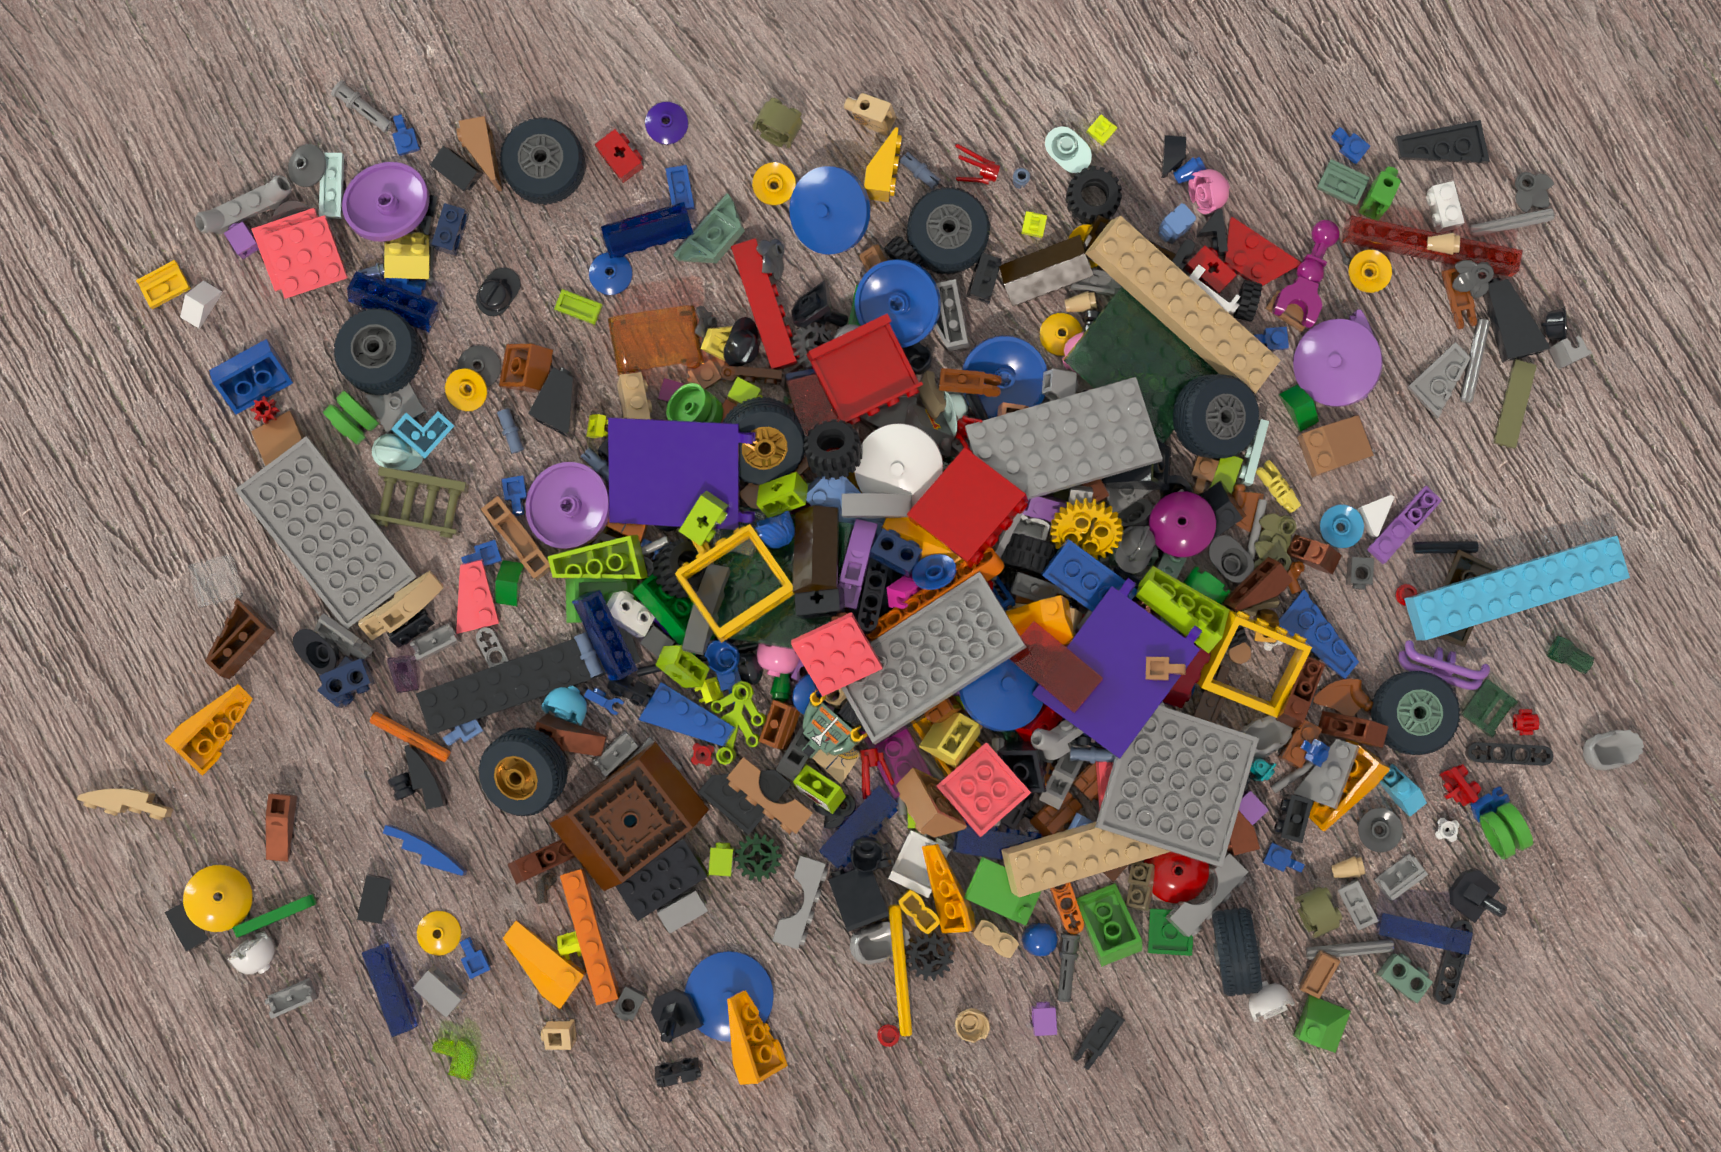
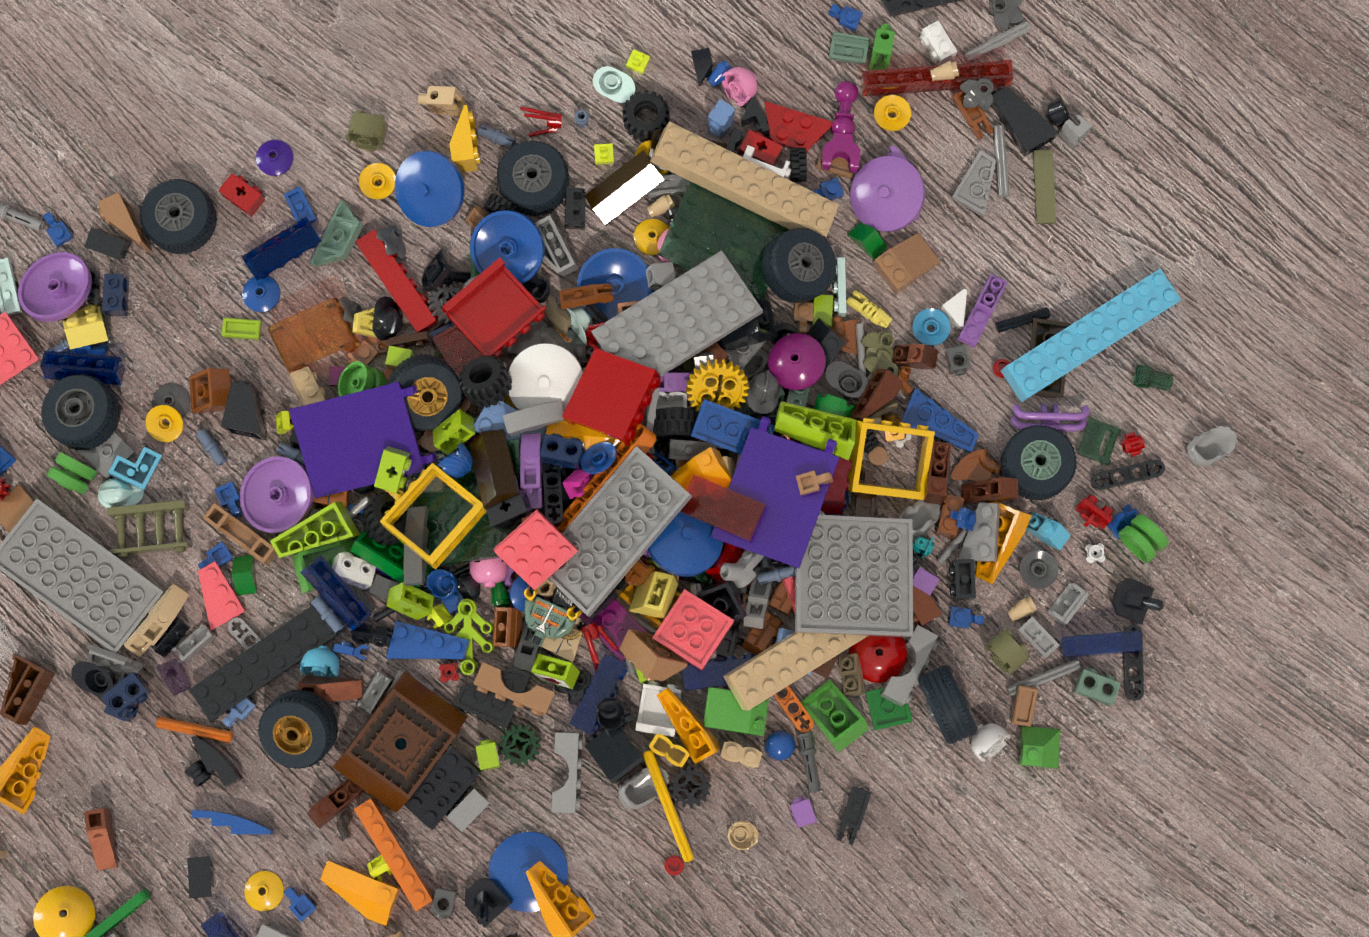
camera: 10 degrees left, 5 degrees down
(498, 291) = (170, 335): black piece -> none

